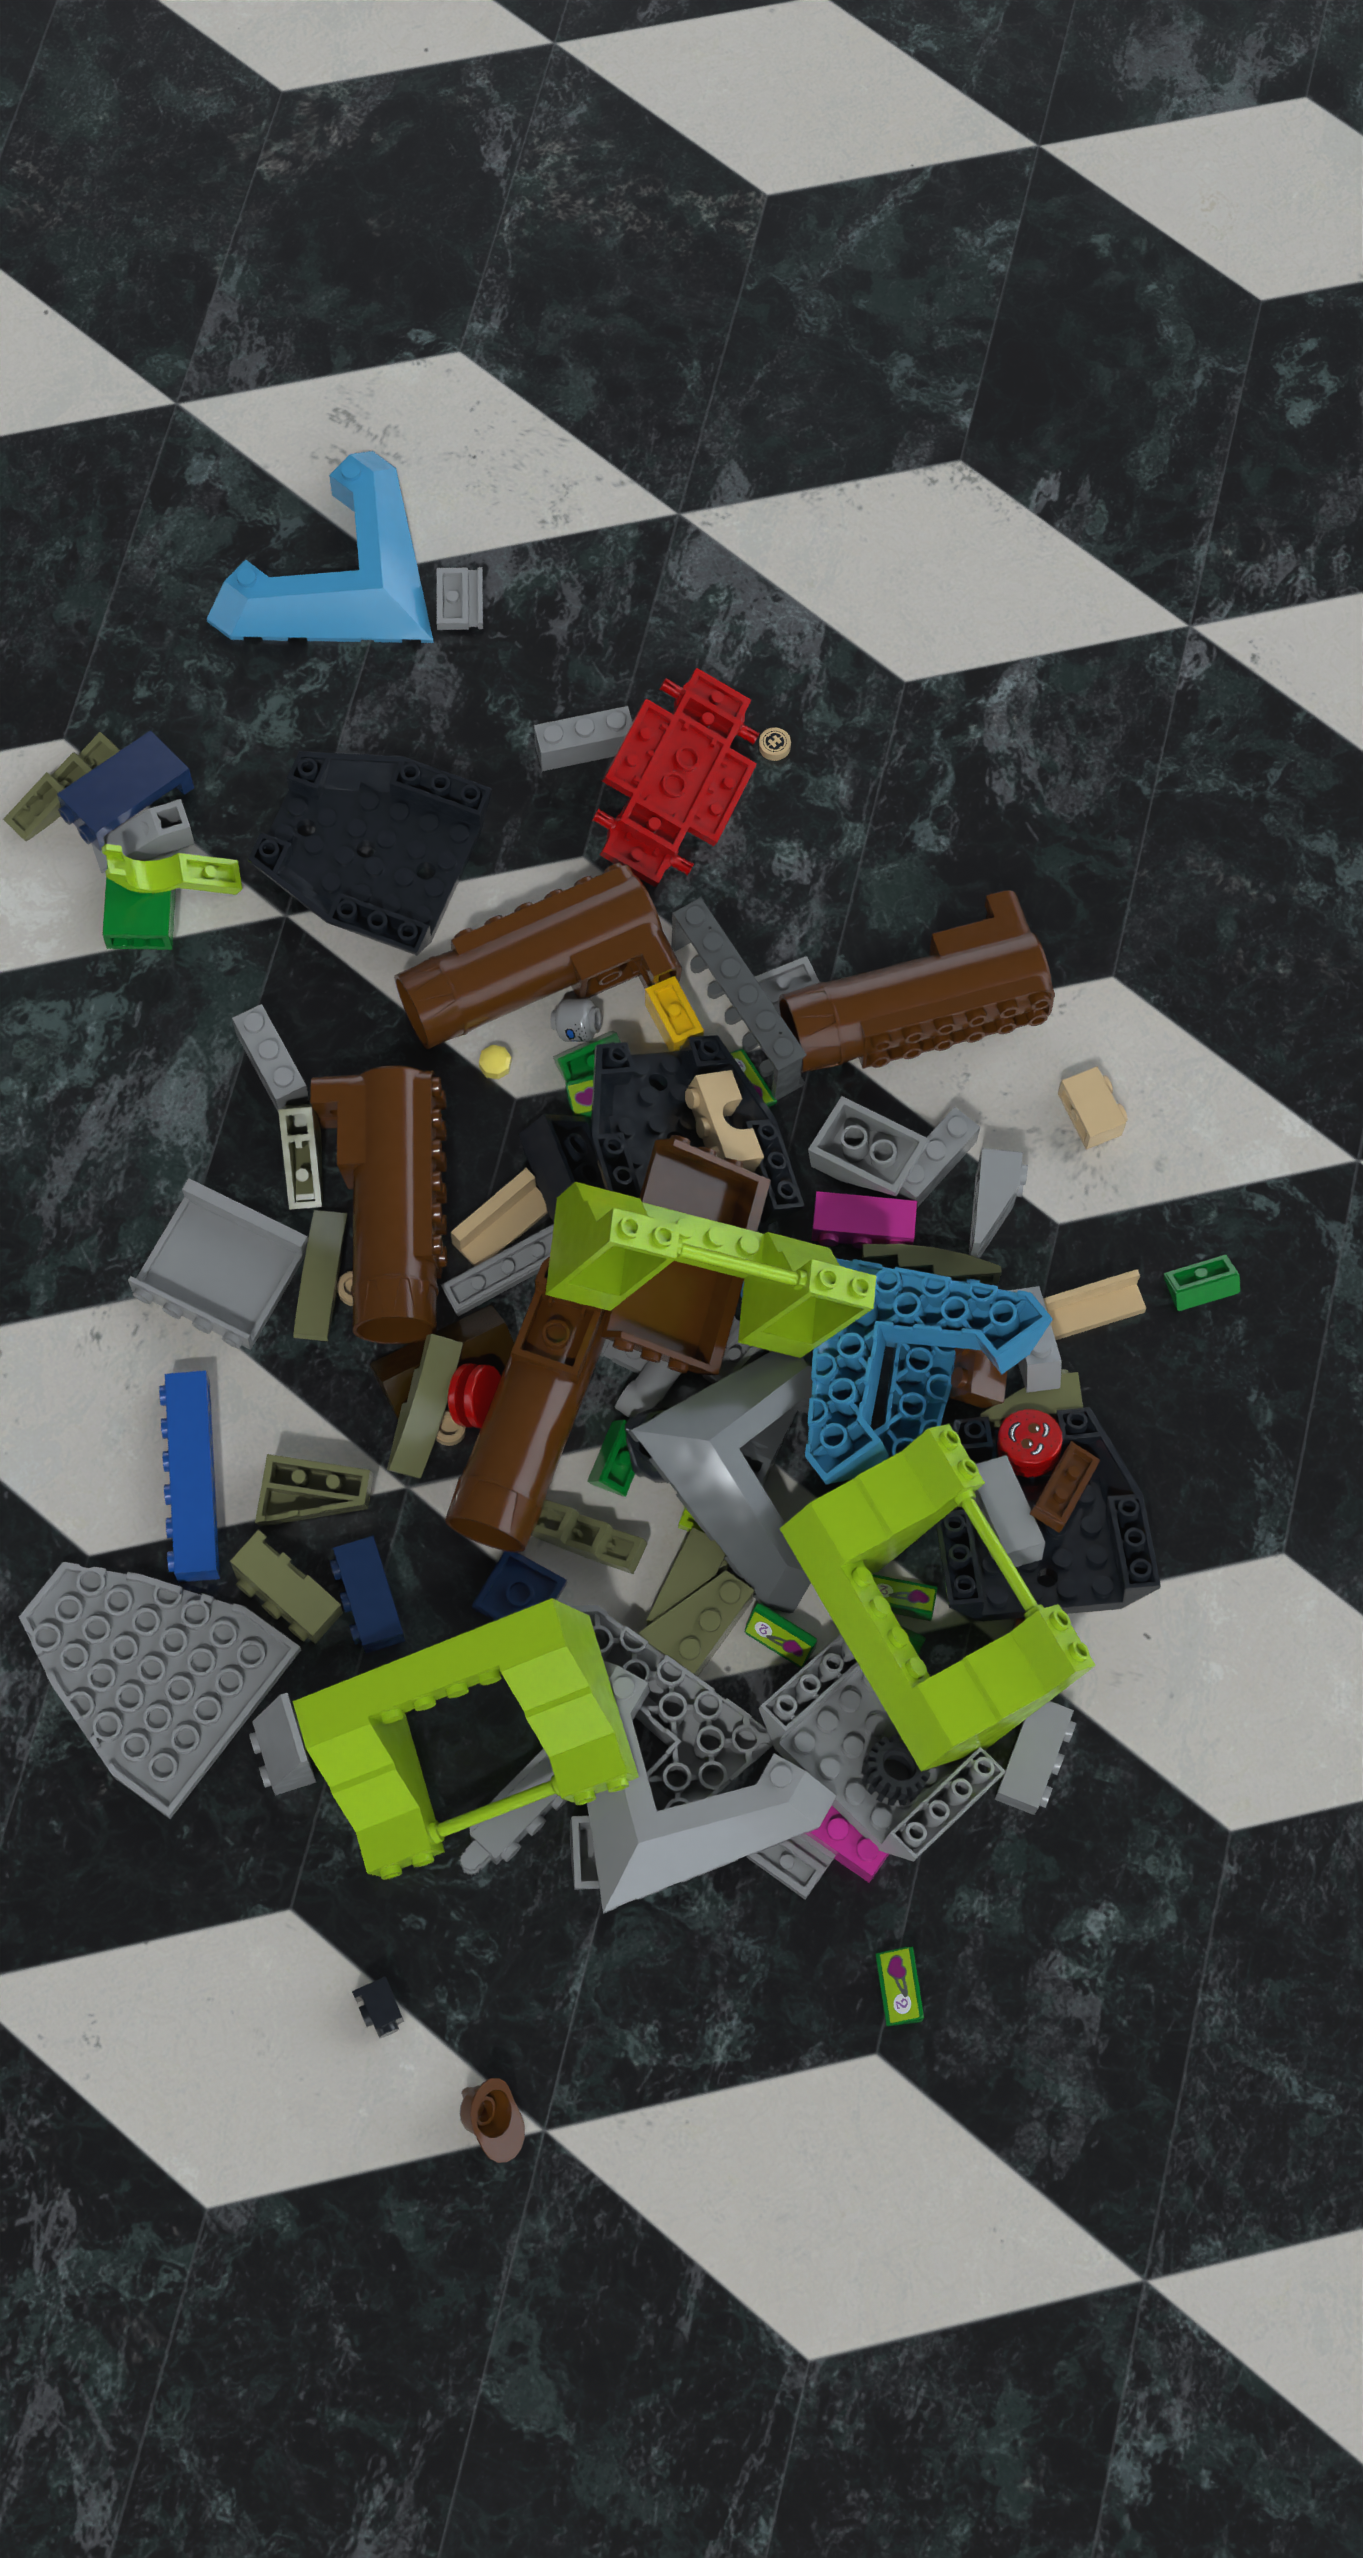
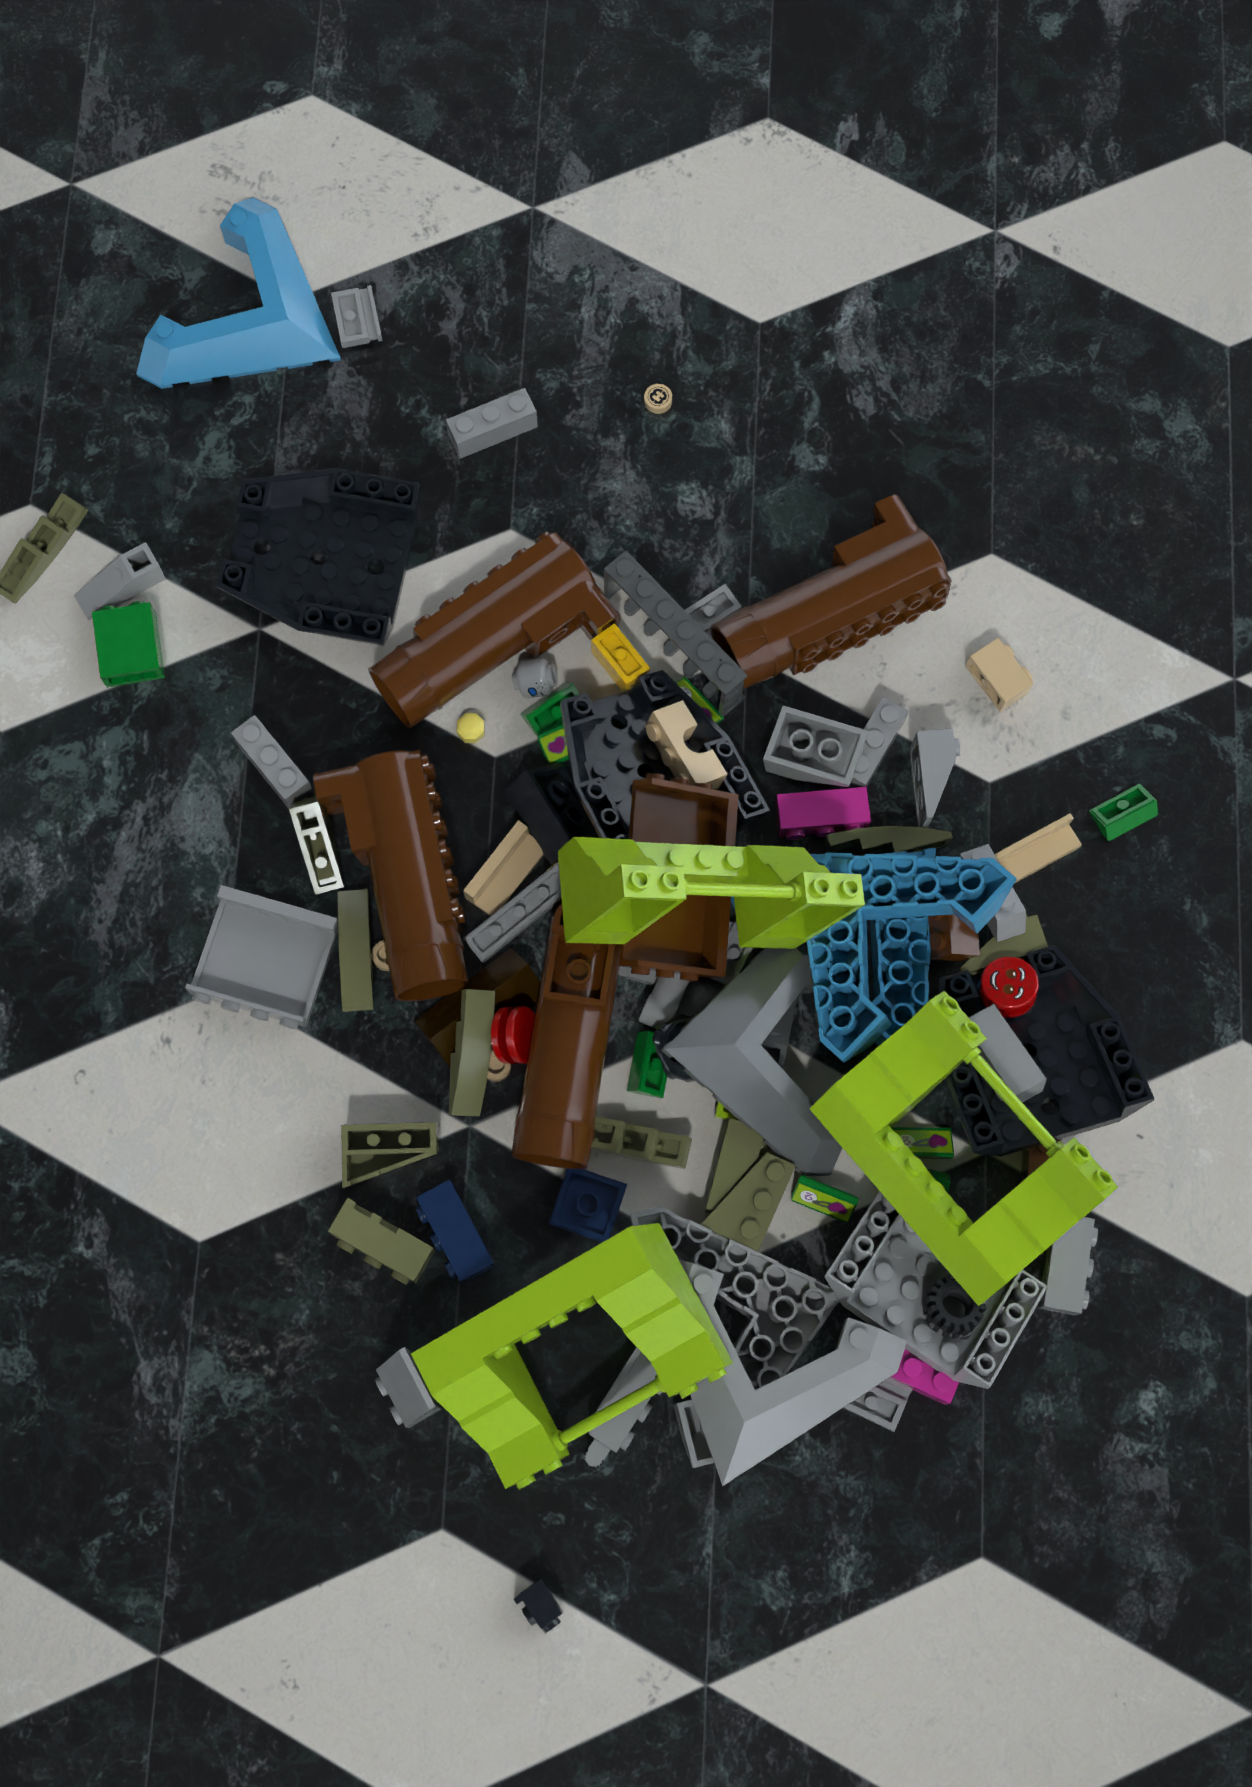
camera: 10 degrees left, 5 degrees up
(122, 788) = (91, 540): dark blue panel -> none
(153, 1672) = (277, 1339): light grey wing -> none
(174, 872) = (151, 610): lime piece -> none
(191, 1476) = (276, 1153): blue brick -> none
(493, 2118) = (660, 1688): reddish brown piece -> none
(677, 776) = (580, 443): red piece -> none
(899, 1986) = (991, 1494): slope -> none
(1065, 1487) = (1050, 1023): reddish brown tile -> none

